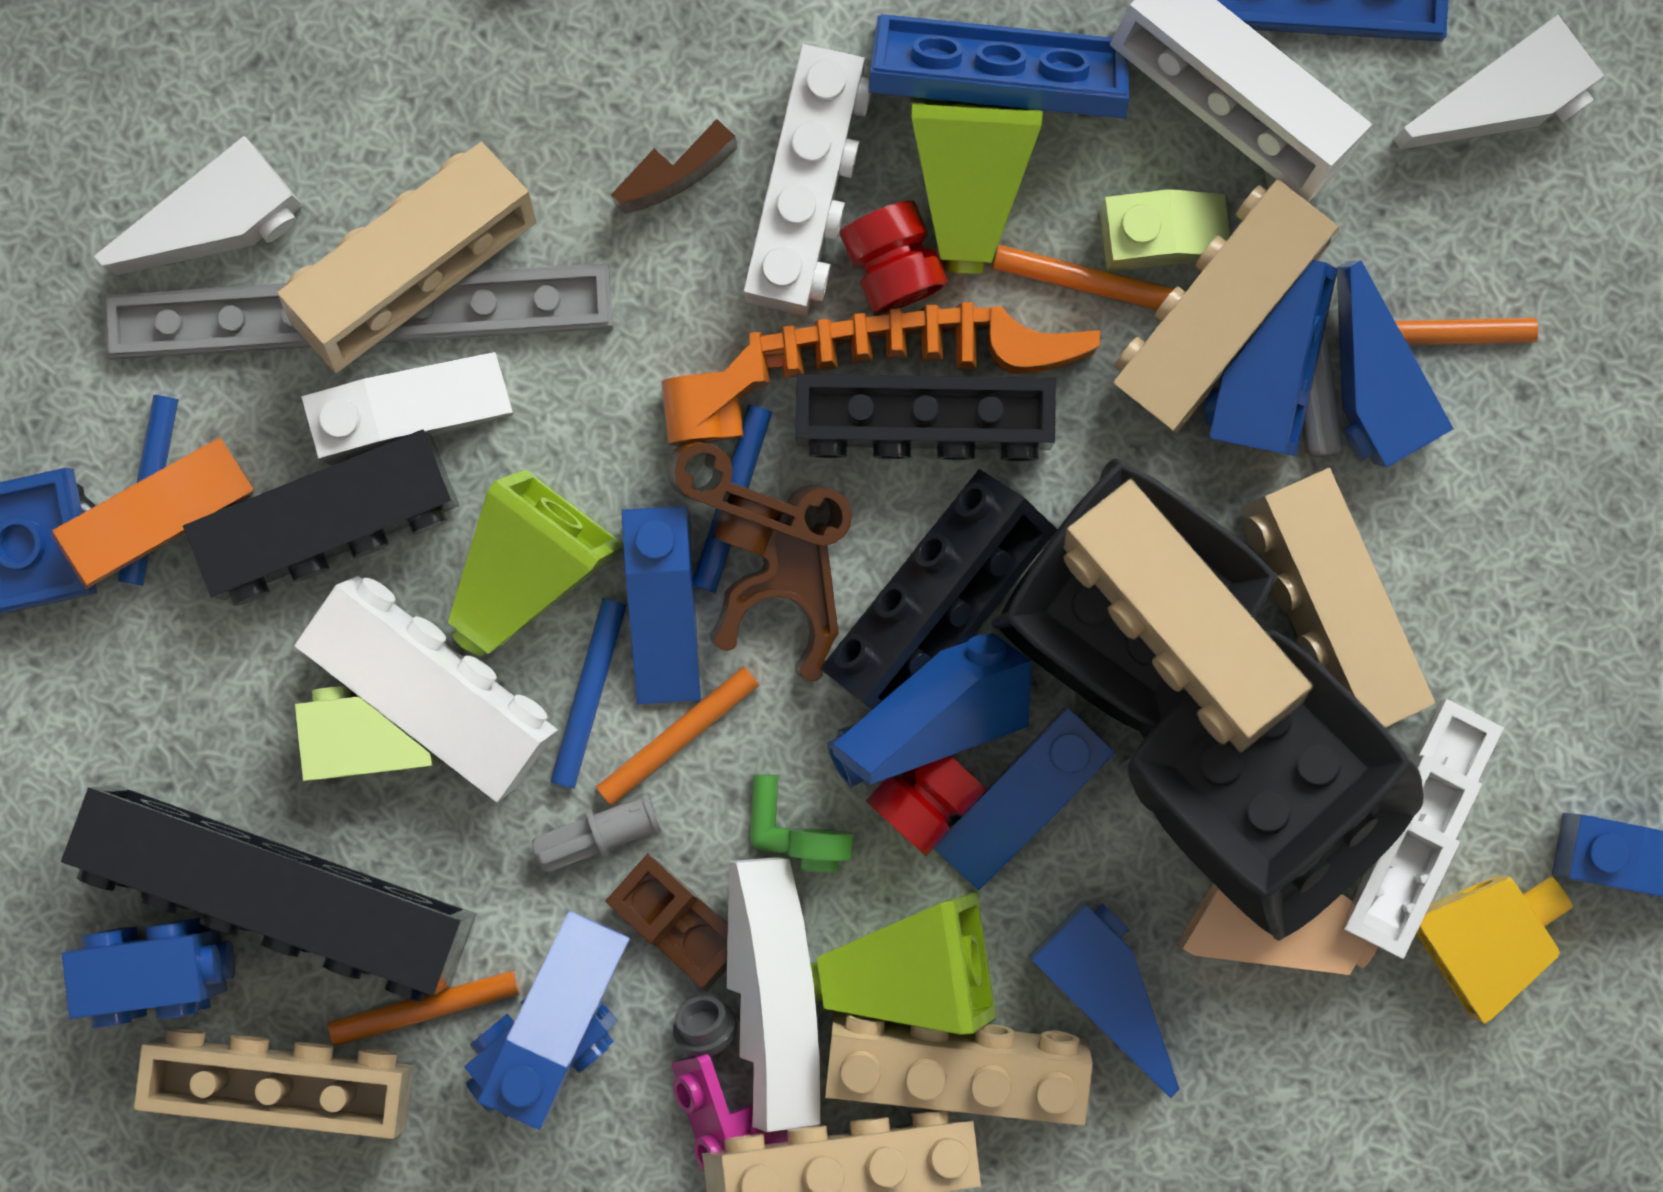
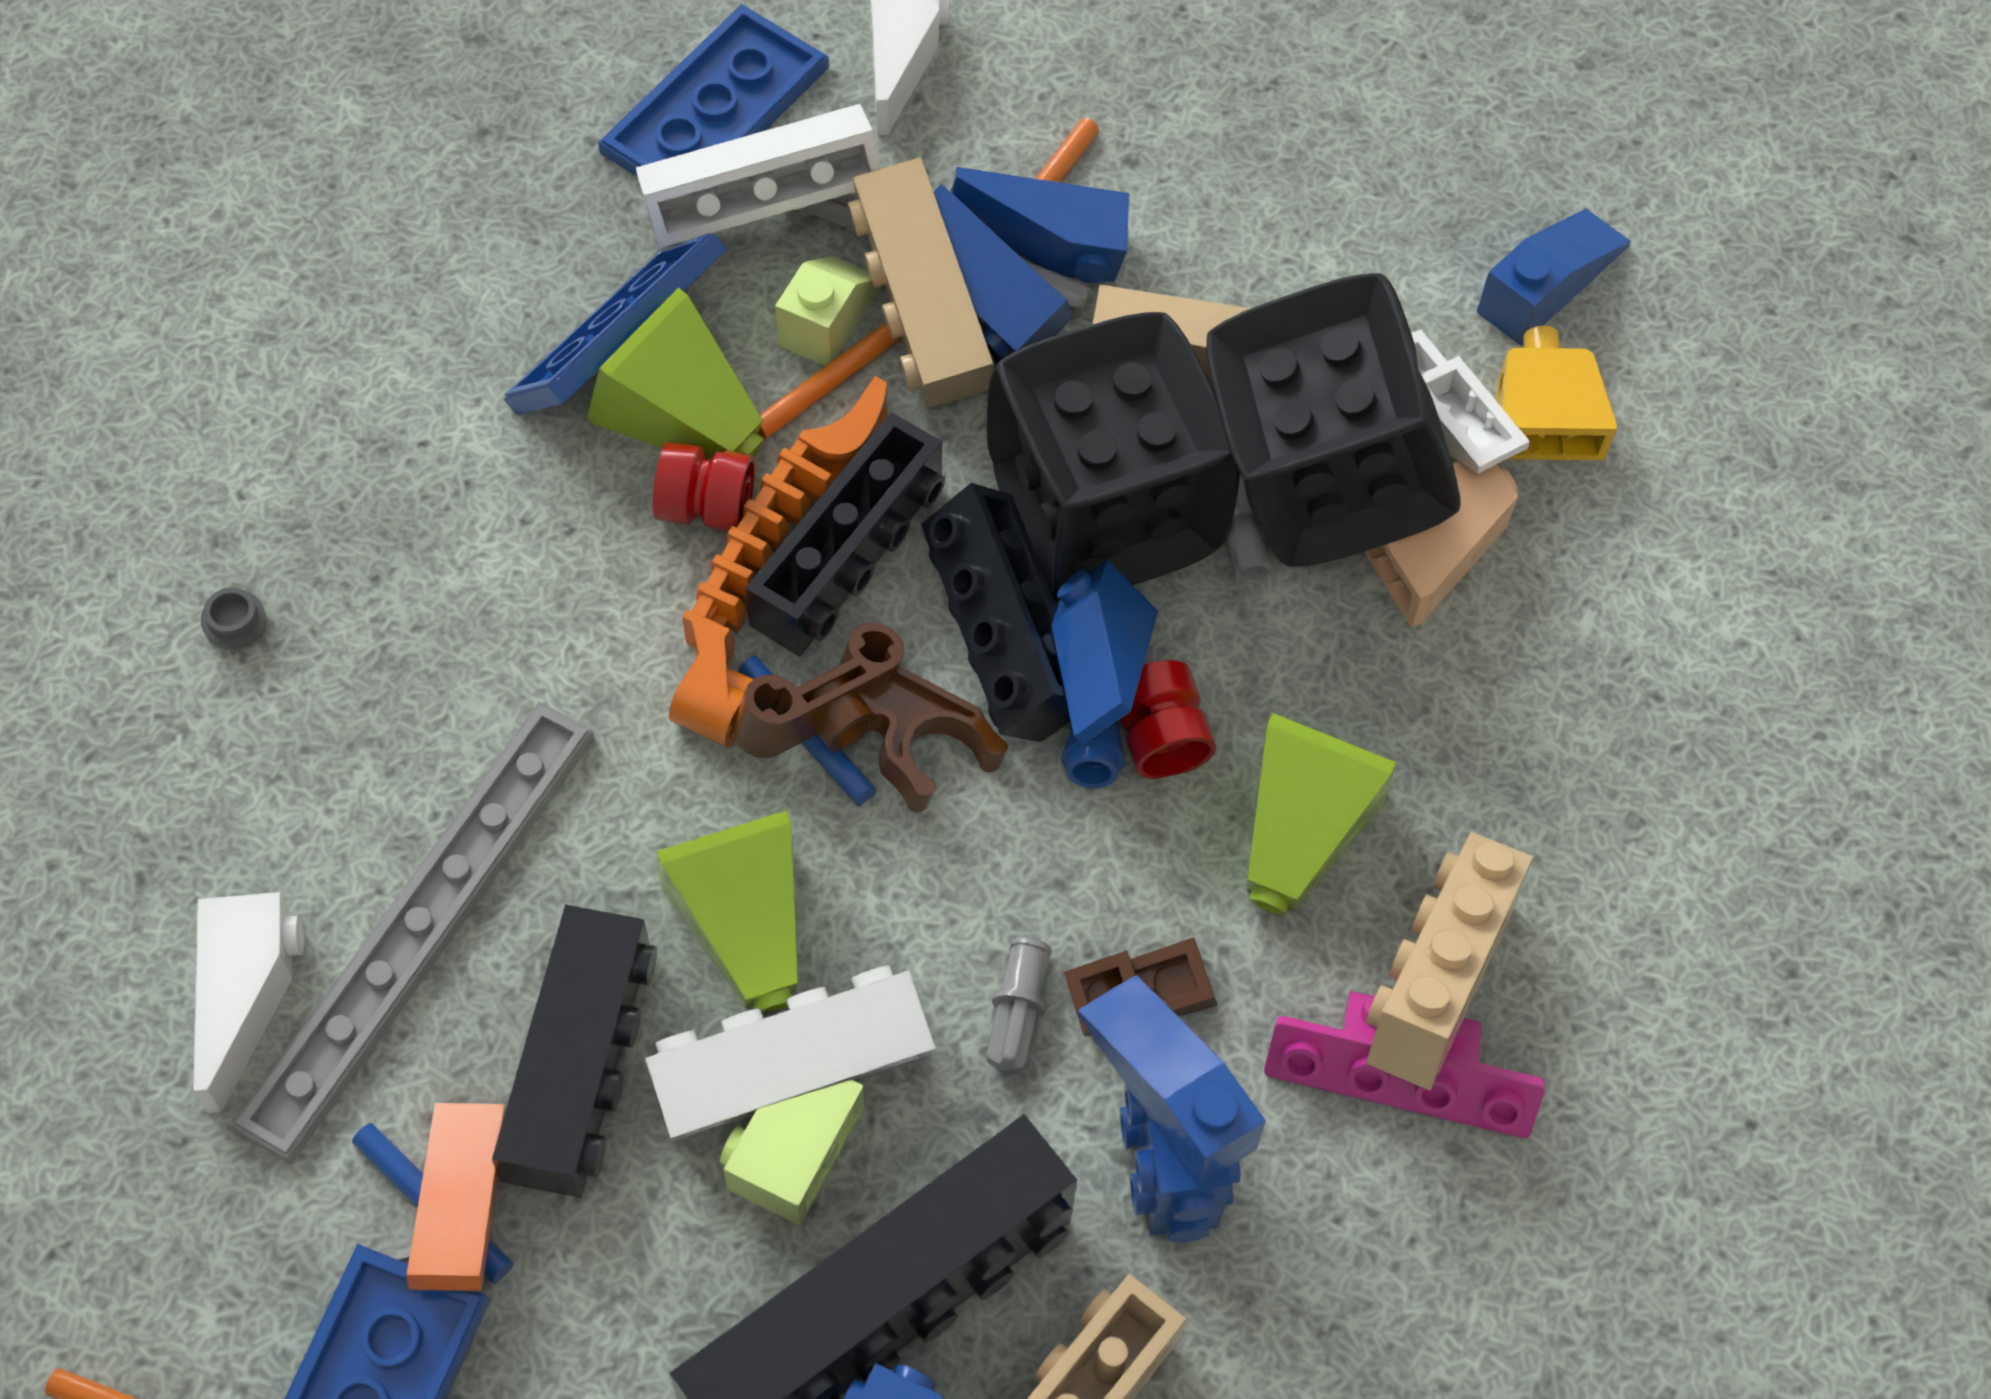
camera: 65 degrees left, 25 degrees down
(396, 404) = (519, 935): white slope -> none
(407, 256) = (408, 834): tan brick -> none
(431, 1007) = (1076, 1253): orange bar -> none
(588, 693) = (889, 941): blue bar -> none
(659, 180) = (505, 608): reddish brown slope -> none
(661, 604) = (854, 825): blue slope -> none
(677, 736) = (977, 893): orange bar -> none
(704, 1026) = (1248, 1016): dark grey plate -> none
(777, 1007) = (1233, 922): white slope -> none
(805, 180) = (594, 513): white brick -> none
(817, 848) = (1150, 832): bright green plate -> none
(970, 1073) = (1416, 829): tan brick -> none
(1024, 798) = (1214, 641): blue slope -> none
(1104, 981) = (1419, 683): blue slope -> none
(1184, 616) = (1156, 361): tan brick -> none

